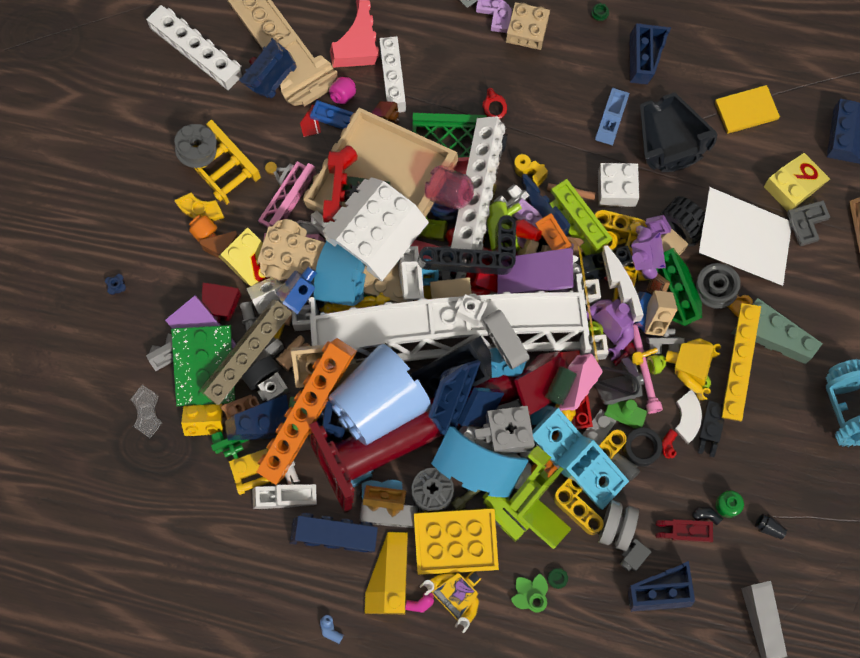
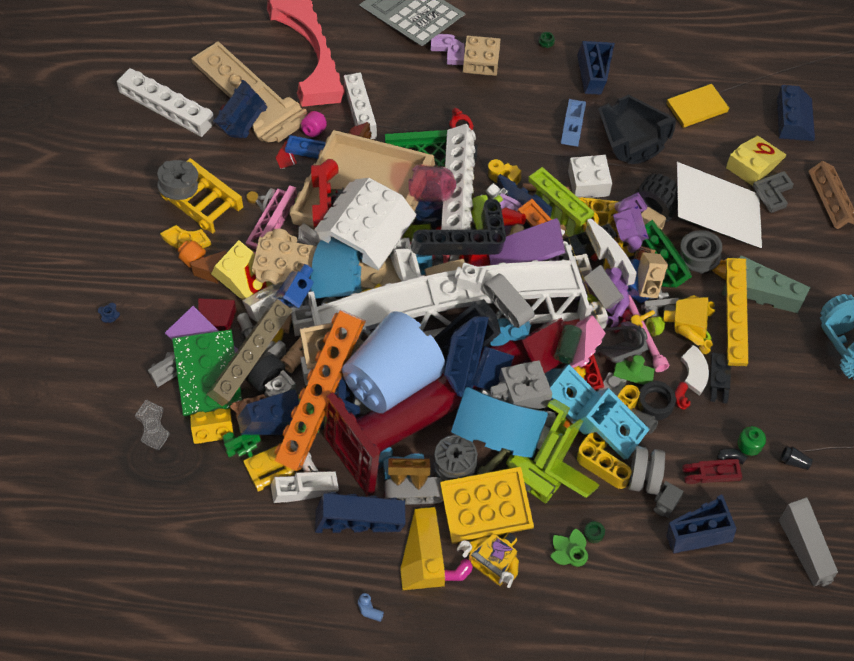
camera: 10 degrees left, 15 degrees down
(607, 324) = (603, 287): none -> light grey hinge

